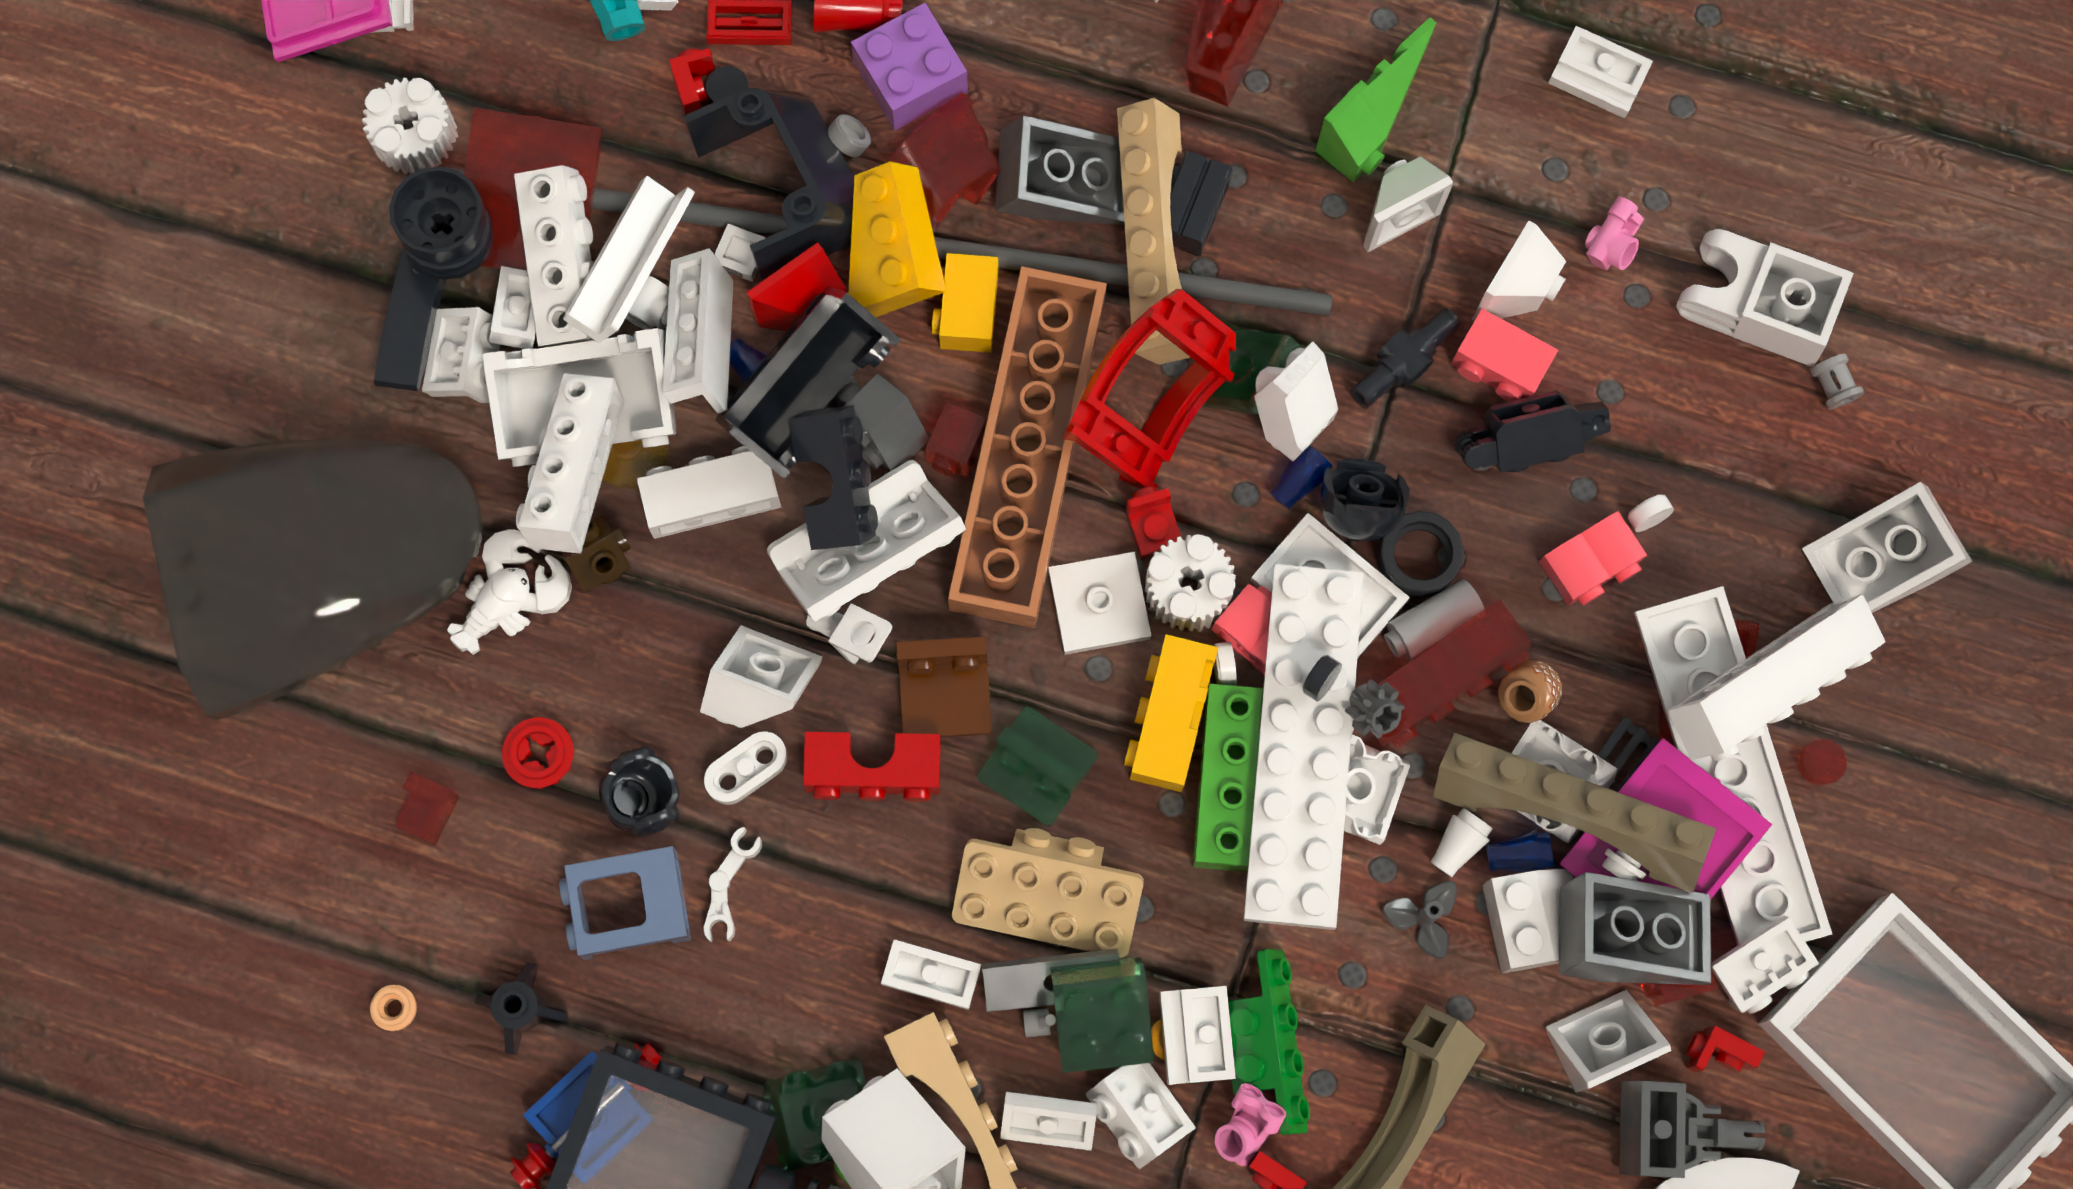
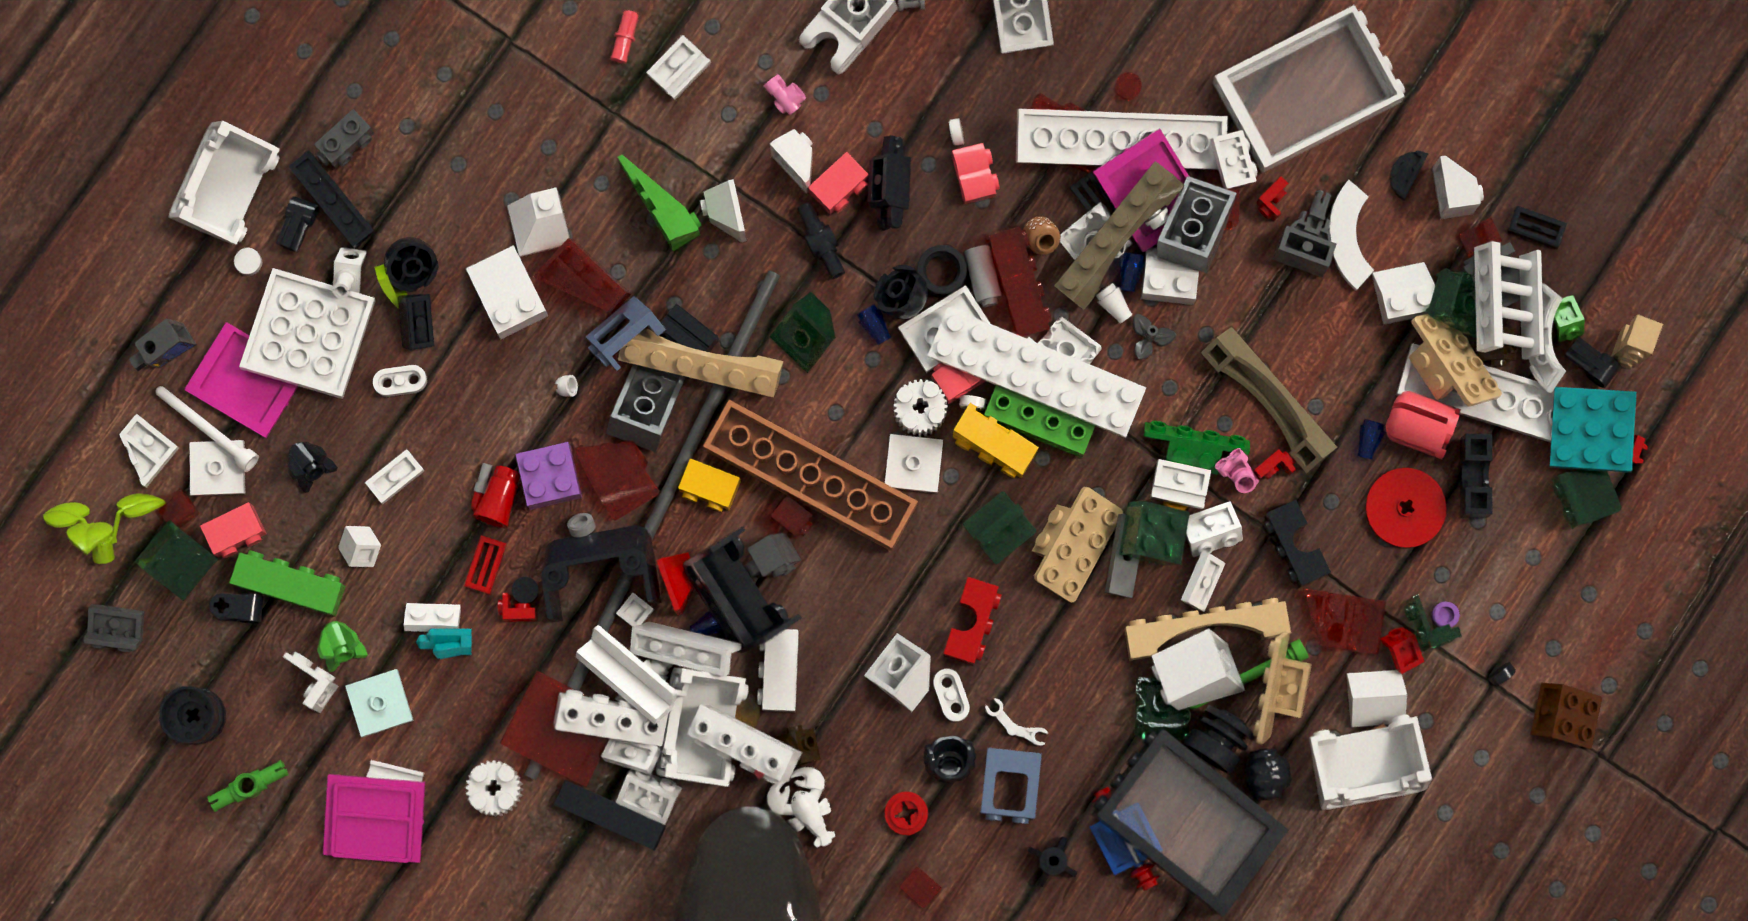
camera: 70 degrees left, 5 degrees up
(436, 201) = (557, 774): black wheel -> none
(834, 441) = (782, 585): black arch -> none
(852, 632) = (890, 611): white bracket -> none
(892, 241) = (664, 517): yellow wedge -> none
(910, 525) = (840, 586): white bracket -> none
(931, 974) = (1101, 623): white plate -> none
(945, 687) = (940, 567): reddish brown bracket -> none
(1038, 1022) = (1146, 571): light grey hand -> none
(1058, 65) = (567, 386): none -> white hinge
(1117, 442) = (832, 413): red wedge -> none
(1151, 520) = (876, 417): red bracket -> none
(1167, 95) = (639, 318): none -> sand blue window
(1296, 400) = (833, 312): white slope -> none
(1321, 677) = (1006, 351): black tile -> none
(1375, 708) = (1029, 326): dark grey gear -> none
(1605, 1041) = (1249, 260): white slope -> none
(1776, 679) = (1080, 97): white brick -> none

